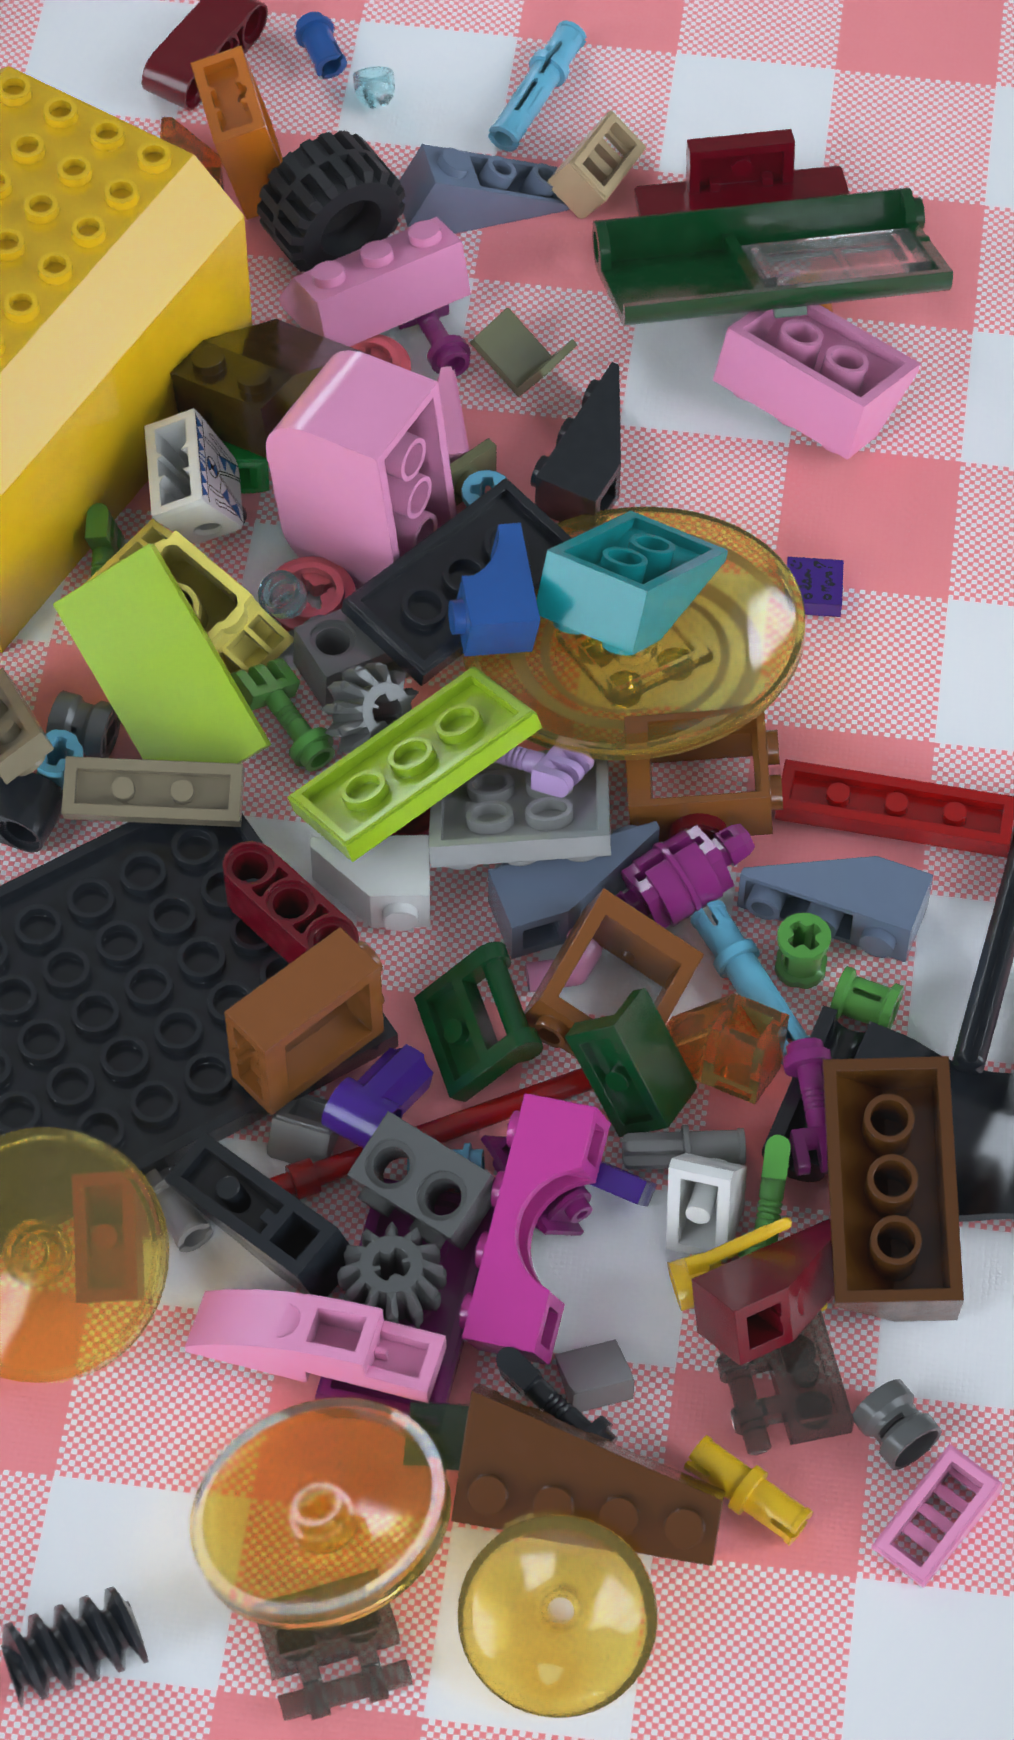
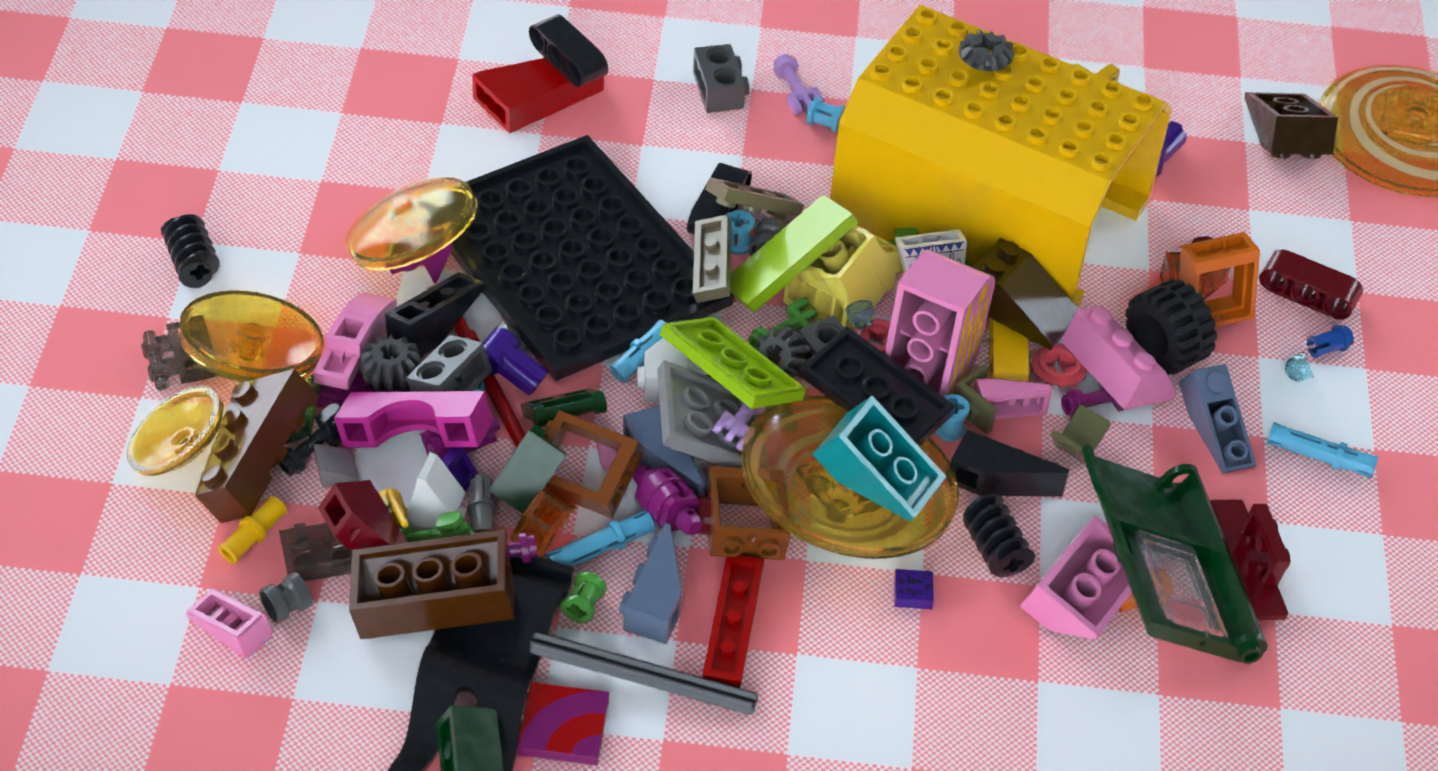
camera: 85 degrees right, 10 degrees down
(276, 895) = (625, 315): dark red beam -> none
(306, 1020) = (530, 284): dark orange window -> none
(350, 905) = (634, 357): none -> medium azure pin
(498, 605) = (845, 387): blue arch -> none
(595, 167) = (1249, 460): tan slope -> none
(729, 465) = (998, 536): none -> black piece
(802, 950) = (620, 571): bright green bush -> none

